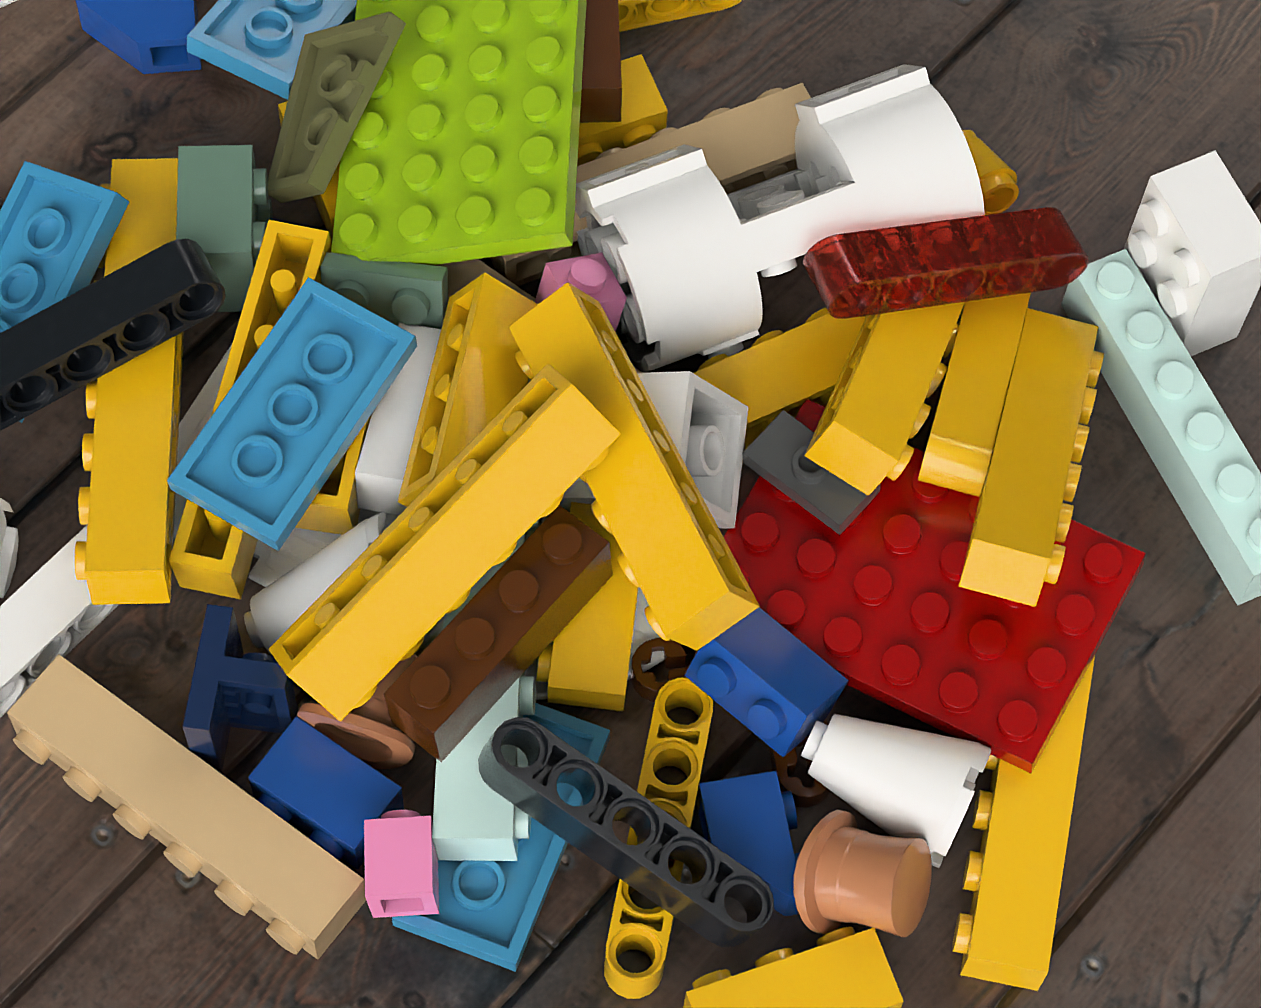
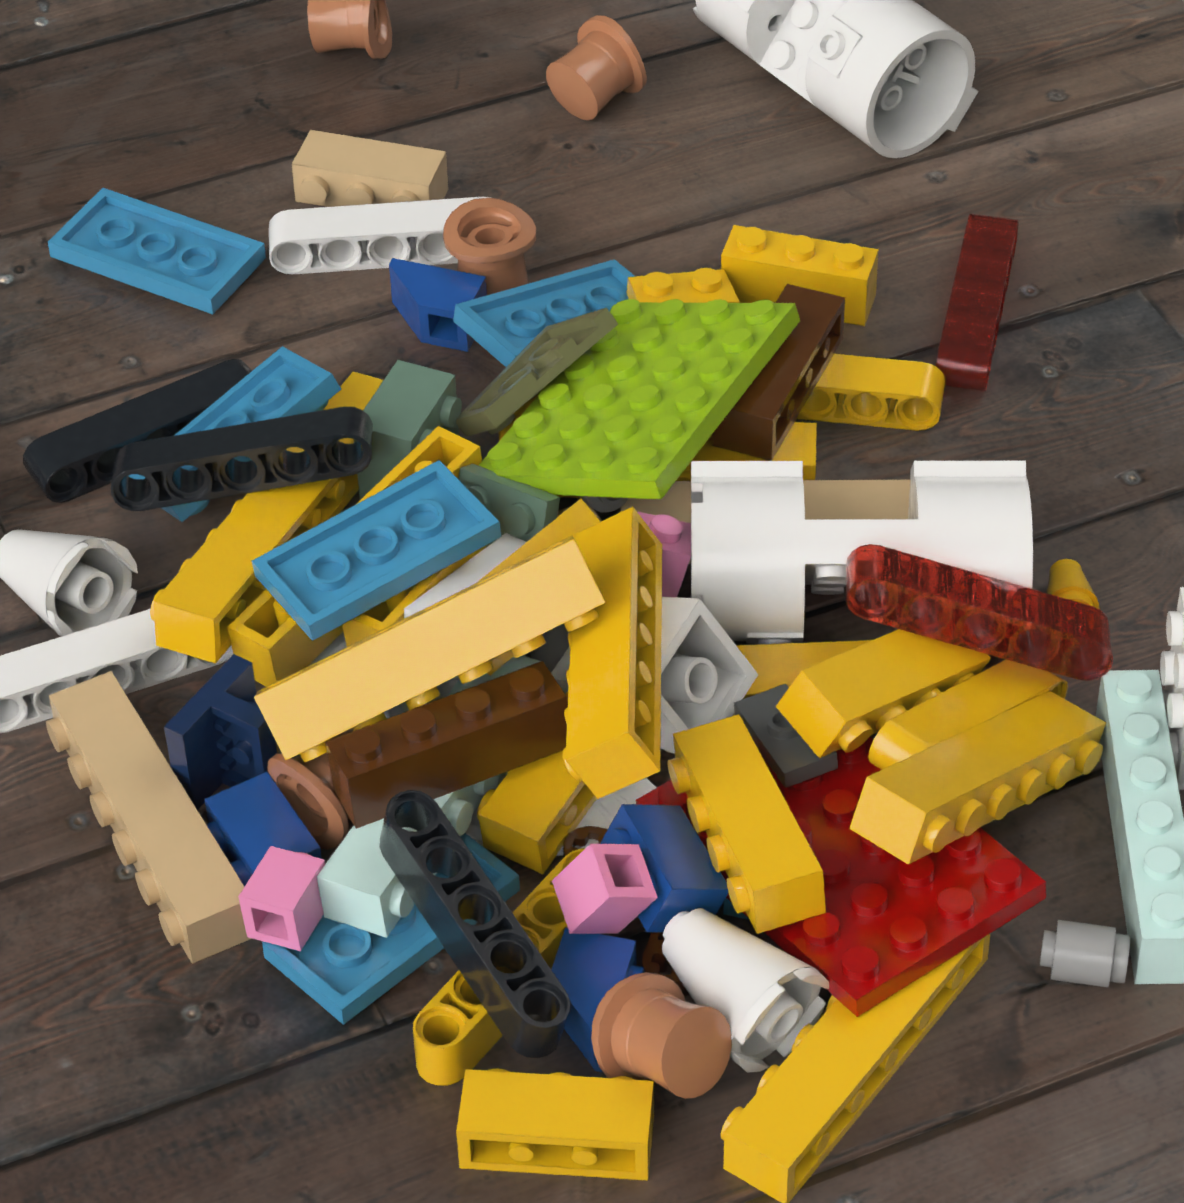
camera: 30 degrees right, 20 degrees down
(735, 738) = (604, 888): none -> bright pink brick
(839, 604) = (747, 824): none -> yellow brick
(1191, 599) = (1085, 953): none -> light grey brick

